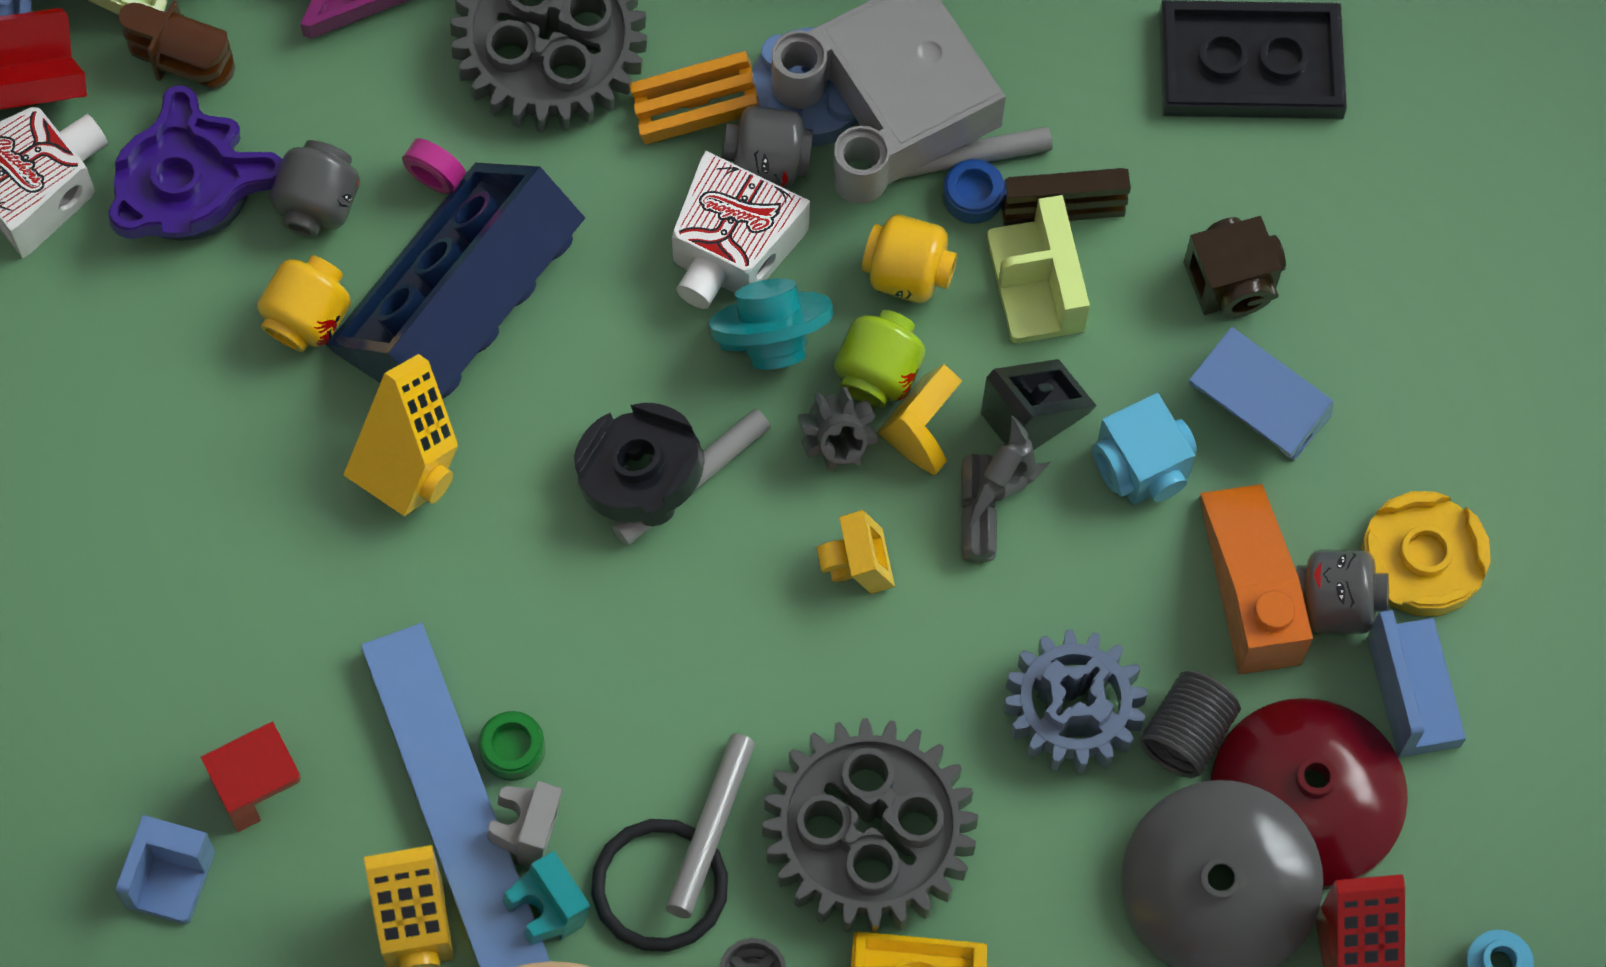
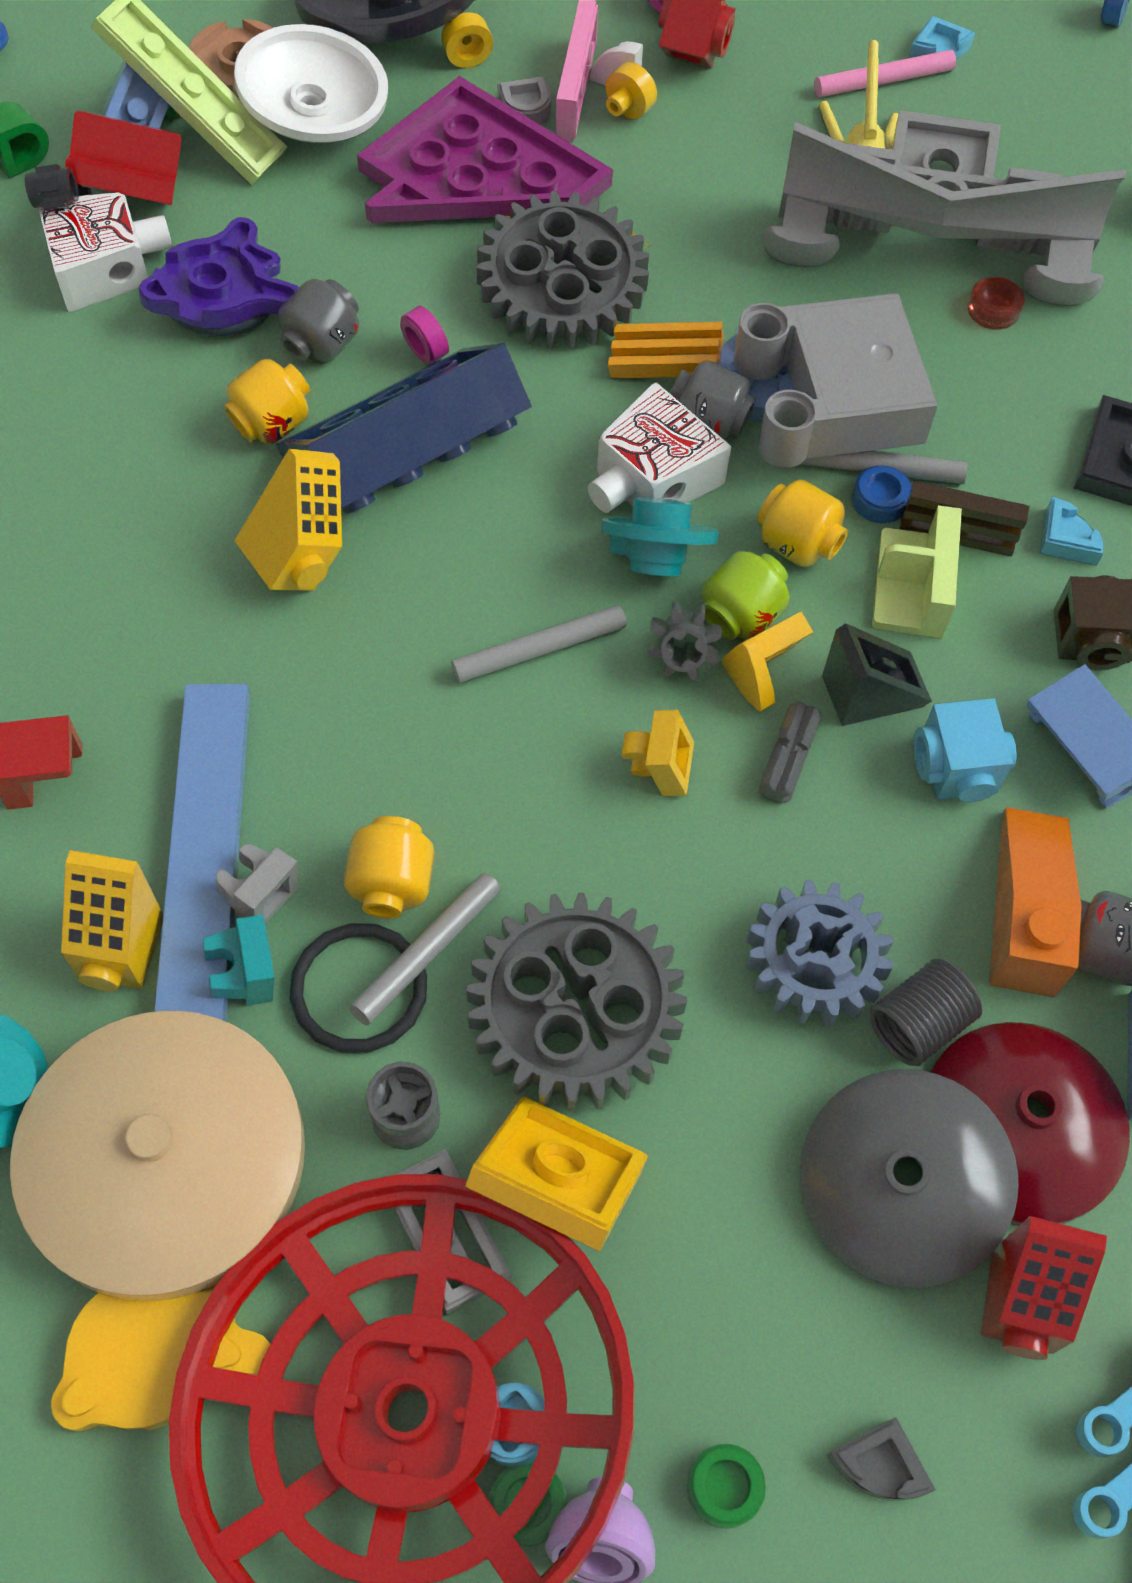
camera: 20 degrees right, 5 degrees down
(177, 44) = (262, 191): reddish brown arm -> none
(511, 745) = (279, 816): green tile -> none
(642, 494) = (521, 619): black plate -> none
(646, 760) = (389, 866): none -> yellow head
(1008, 471) = (830, 722): dark grey piece -> none
(1174, 174) = (1069, 535): none -> medium azure tile

